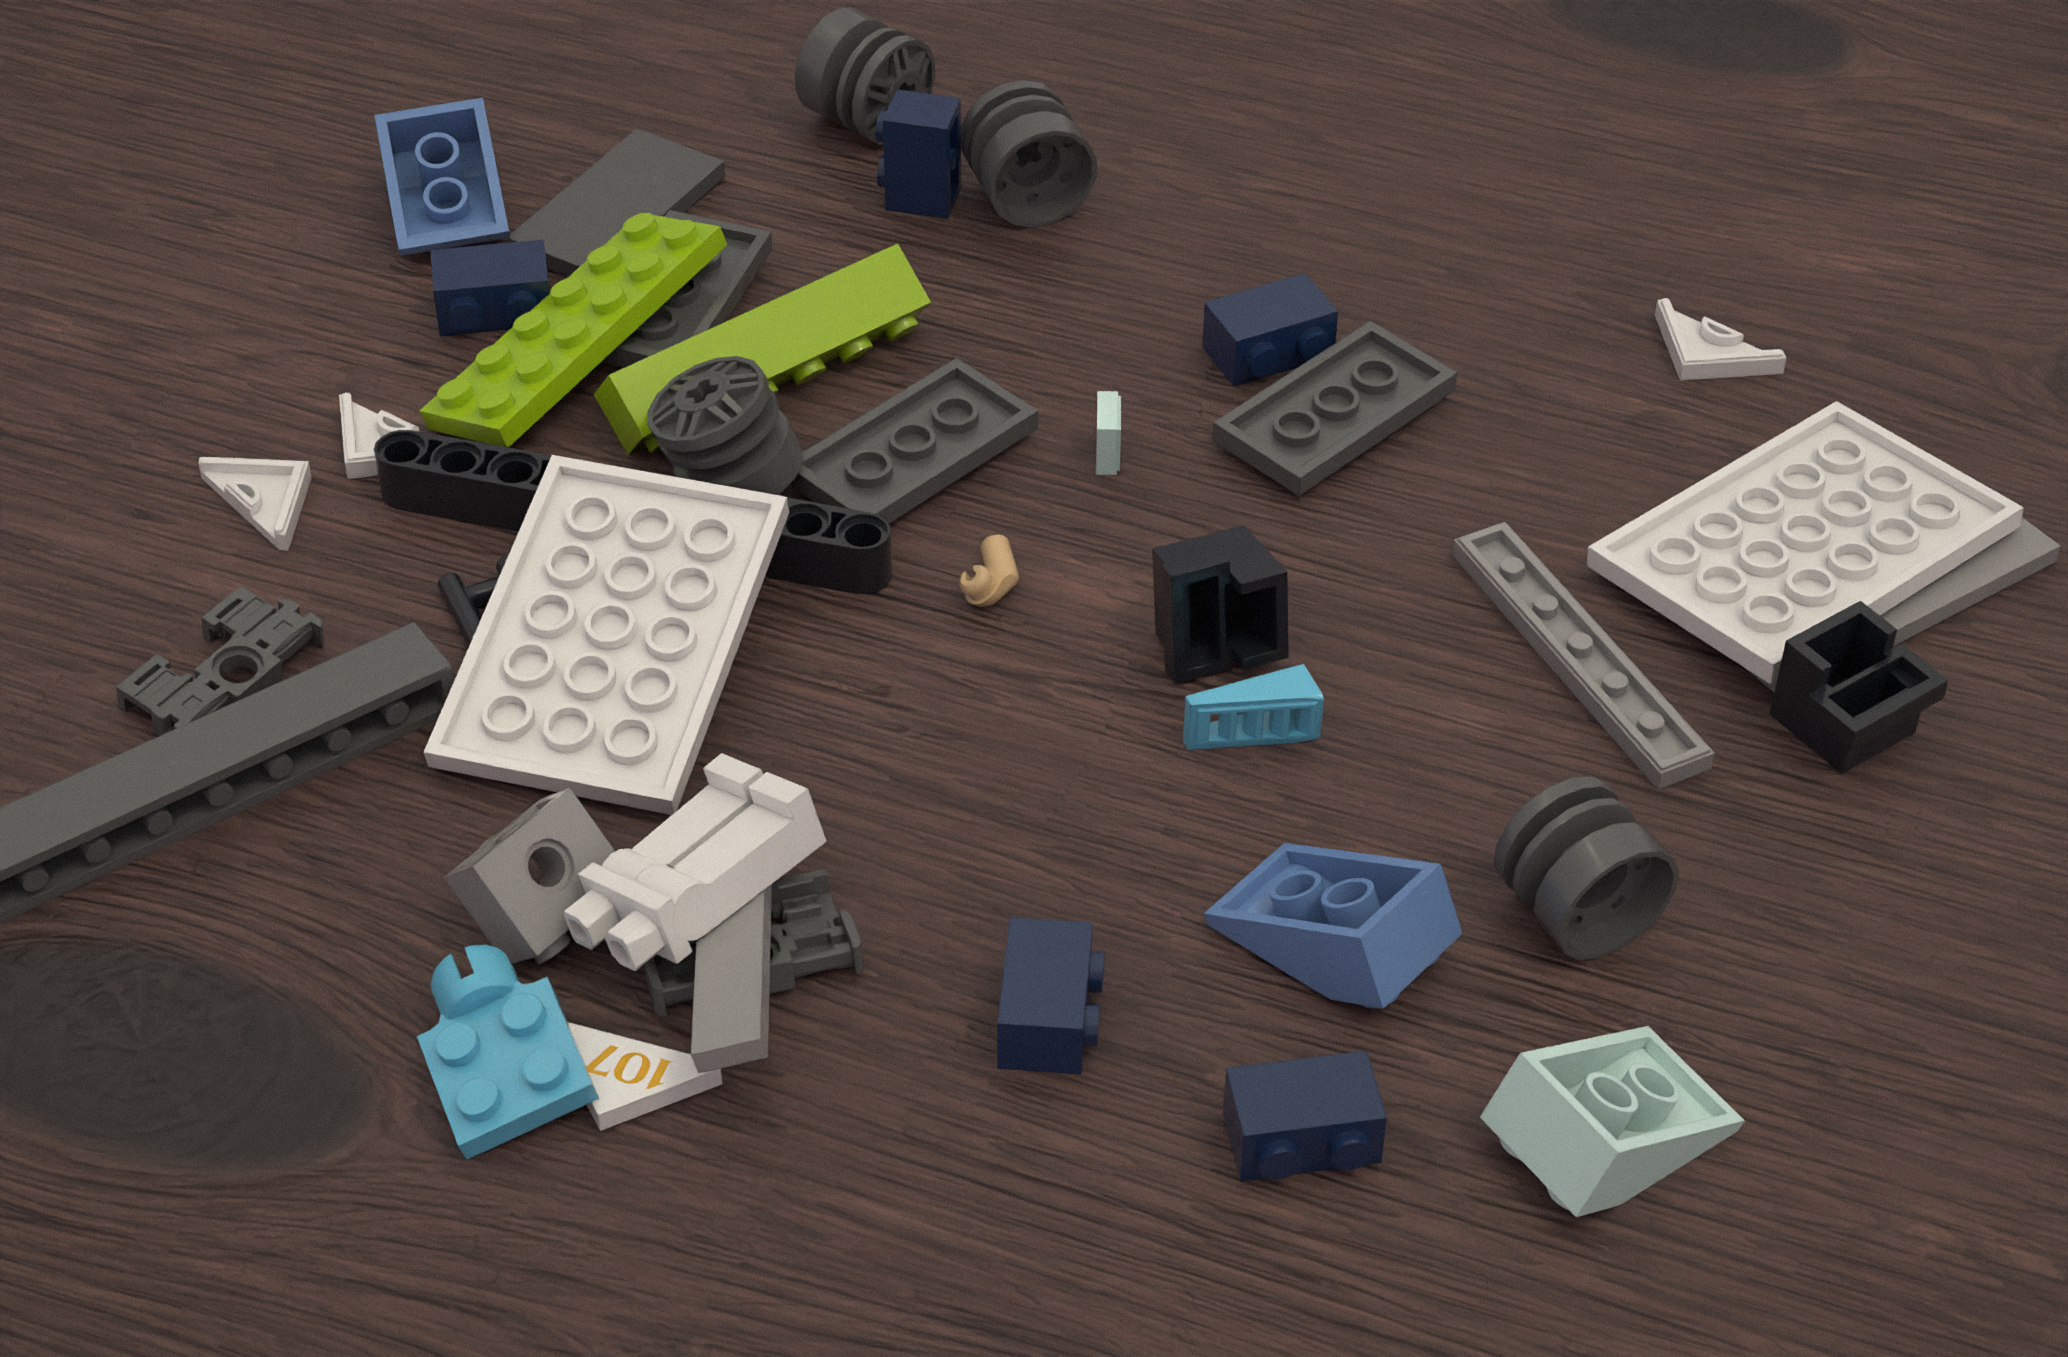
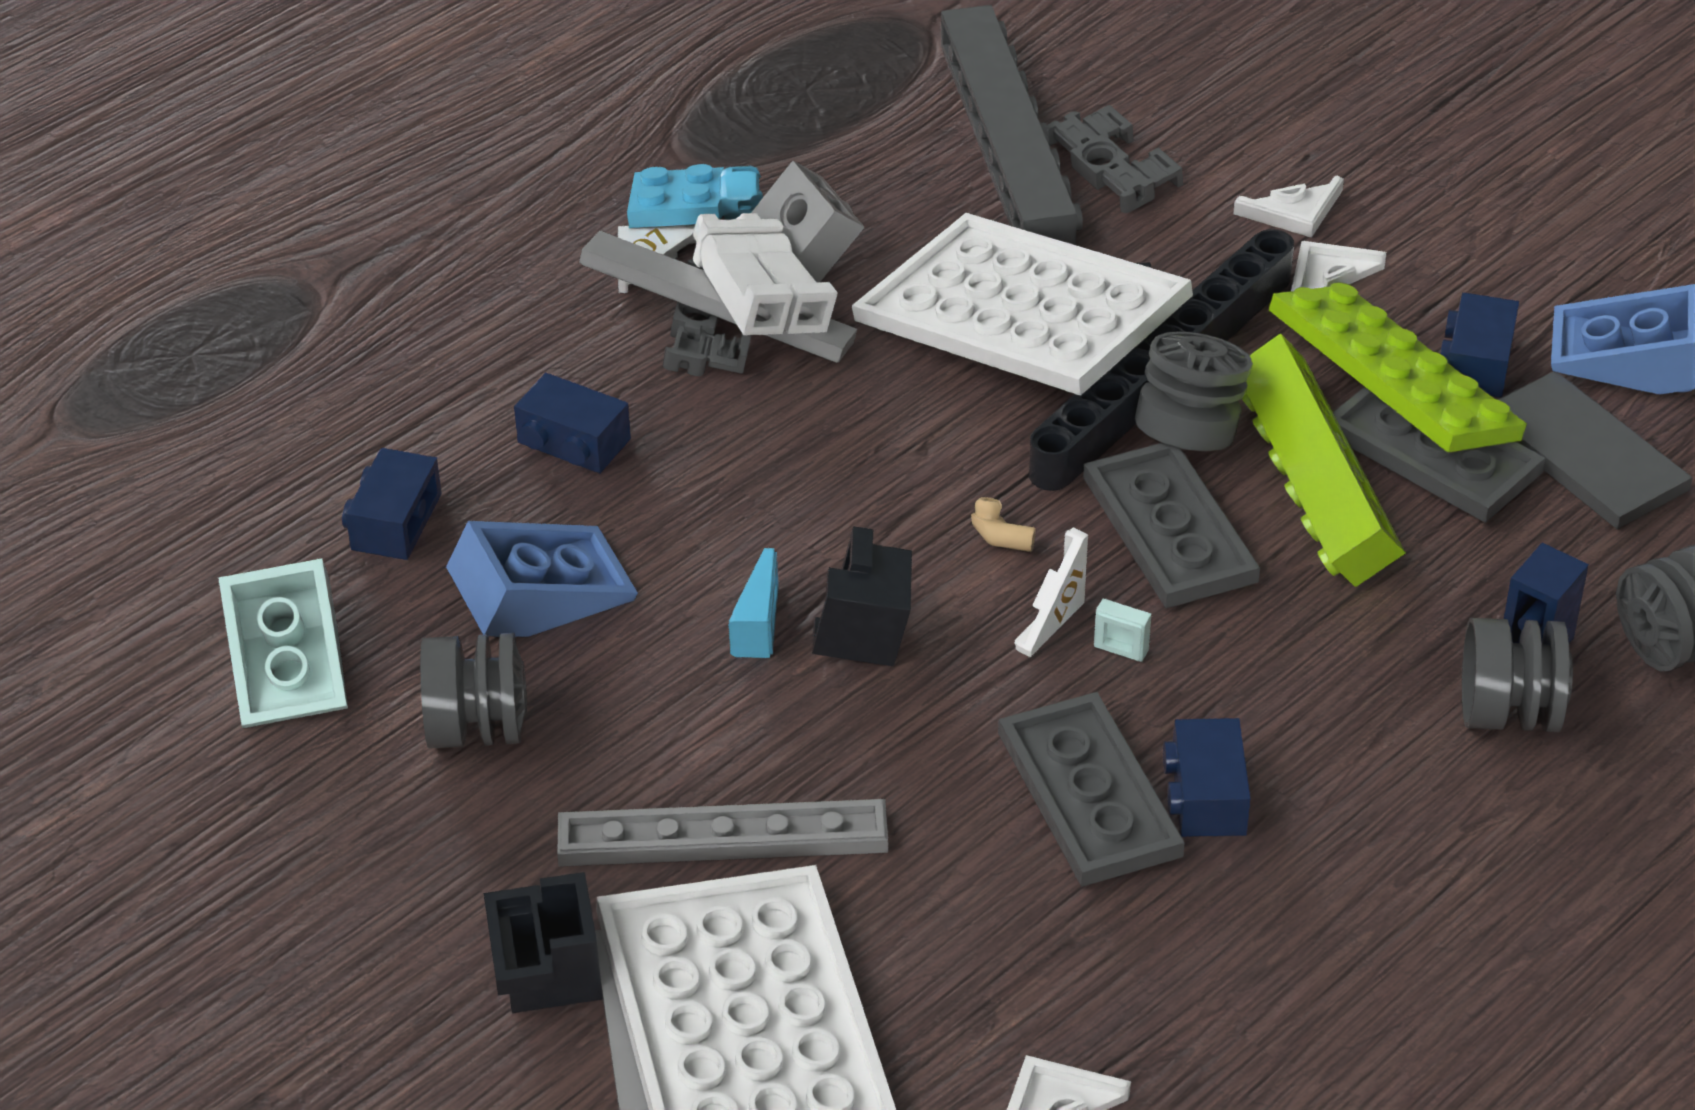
camera: 115 degrees right, 0 degrees up
(1093, 484) = (1059, 595): none -> white tile

